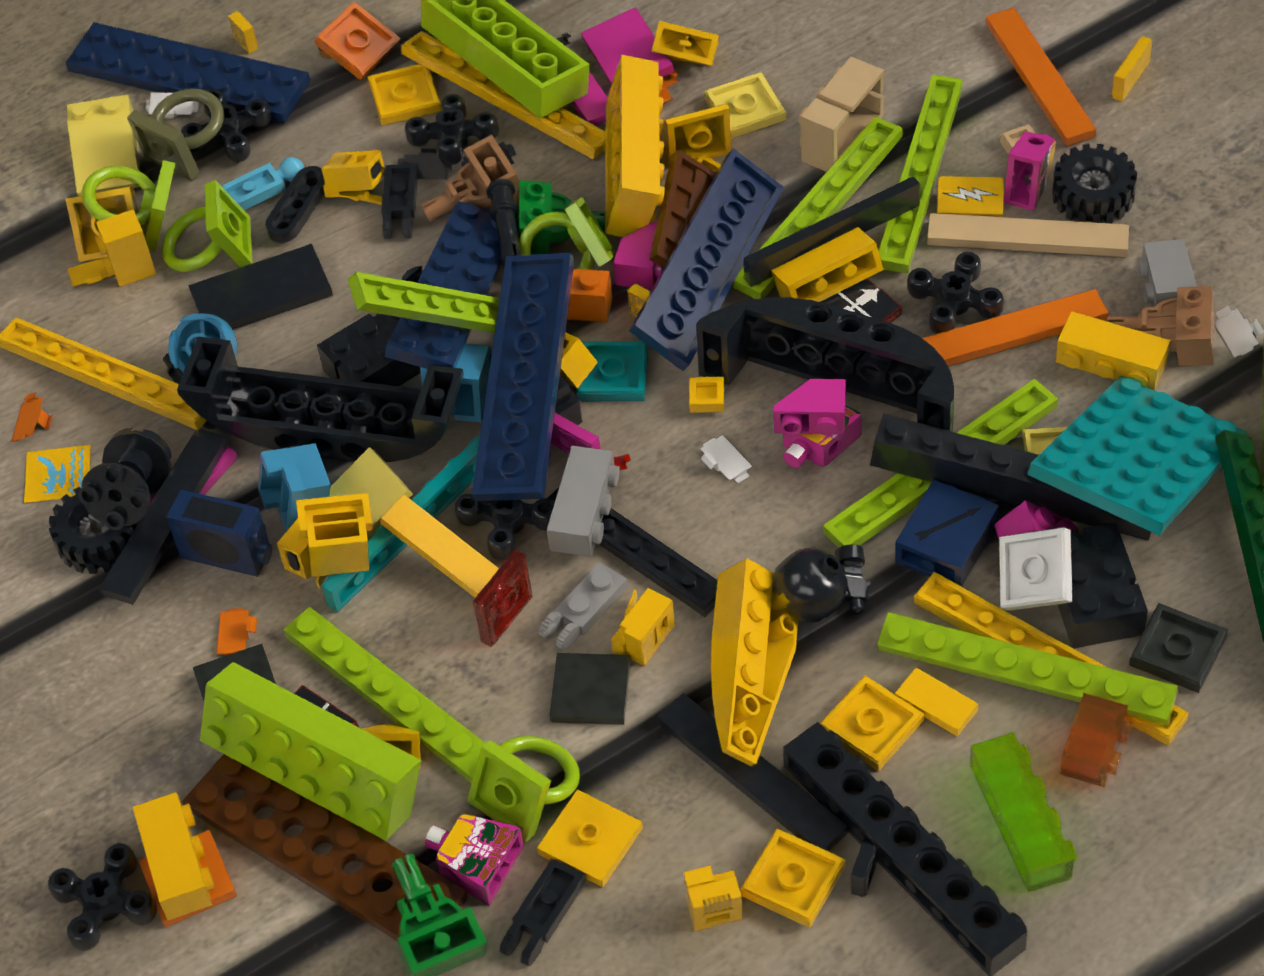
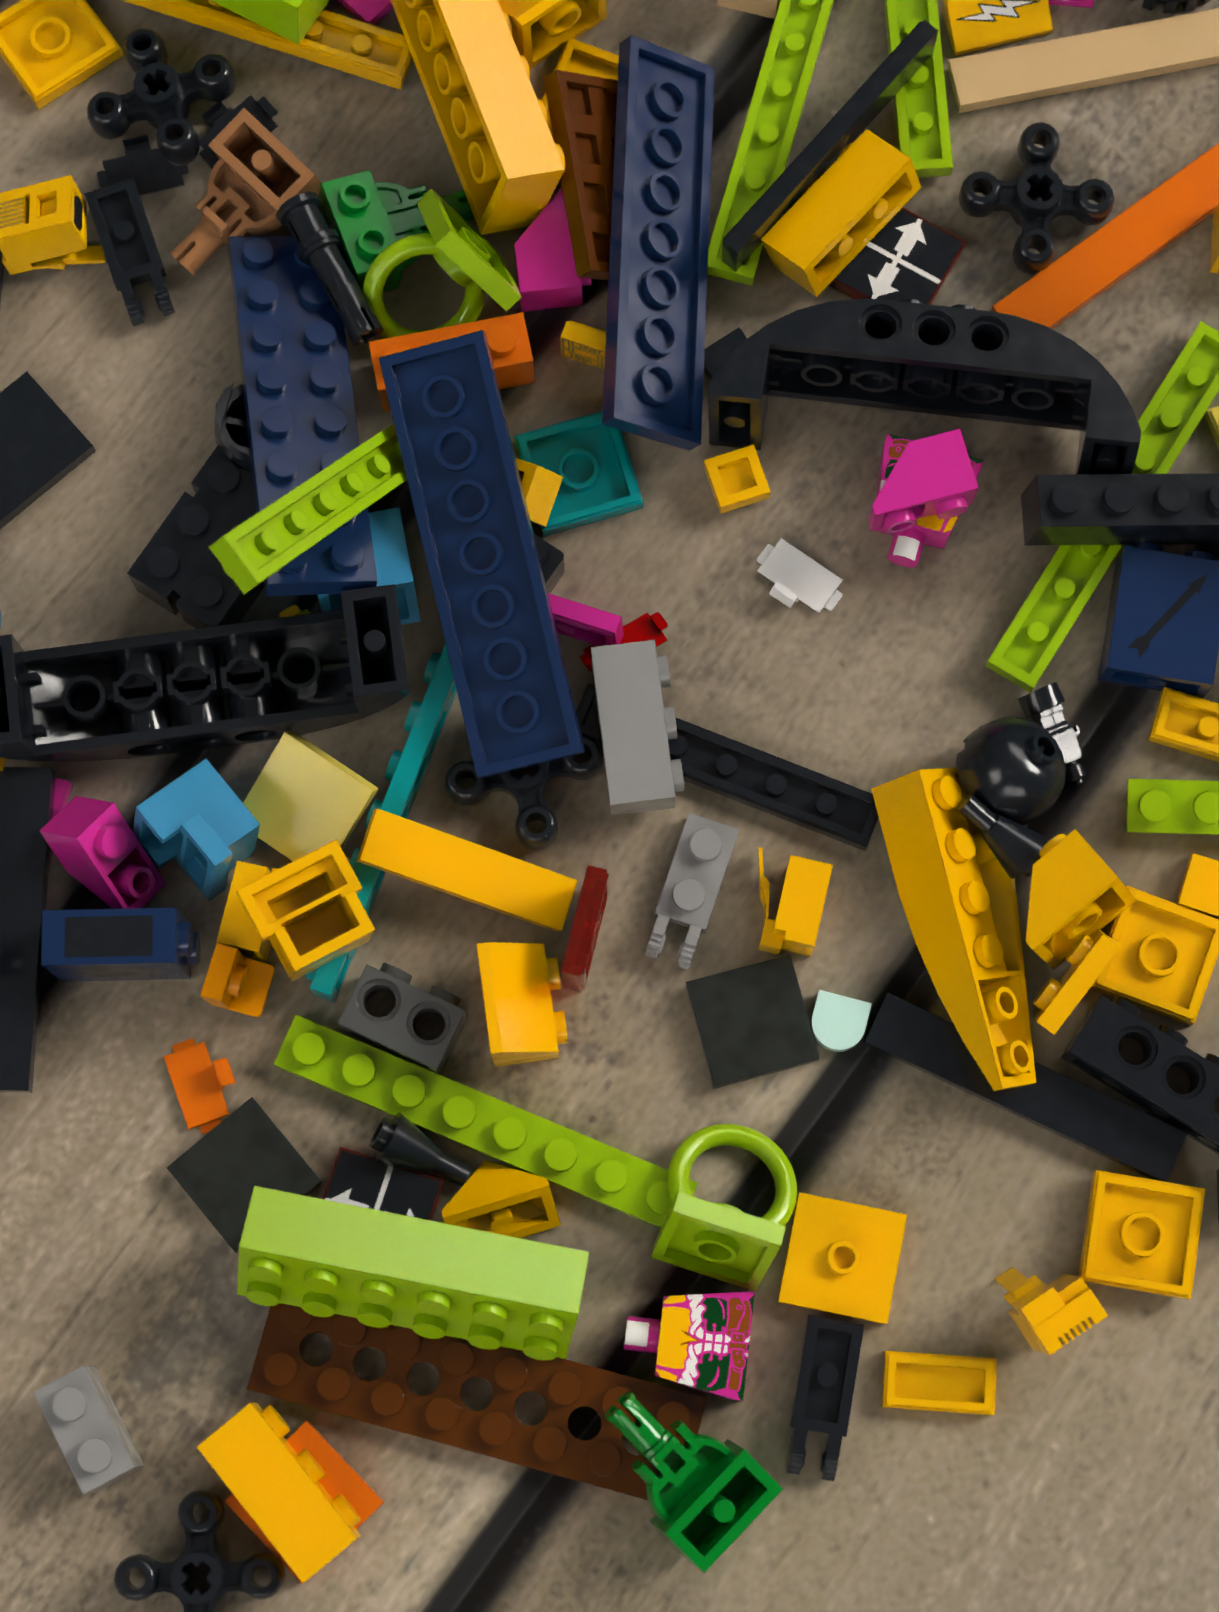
camera: 25 degrees left, 25 degrees up
(75, 792) = (88, 1429): none -> light grey brick
(234, 481) = (102, 853): none -> dark pink slope
(278, 576) = (237, 982): none -> light orange bracket
(340, 692) = (405, 1146): none -> black cone
(369, 627) = (397, 1030): none -> dark grey brick
(443, 629) = (519, 1002): none -> yellow slope
(623, 930) = (939, 1382): none -> yellow tile
(646, 703) = (838, 1021): none -> light aqua tile
(793, 621) = (1010, 842): none -> black cone
(815, 705) = (1088, 961): none -> yellow plate
(817, 661) = (1070, 897): none -> yellow slope

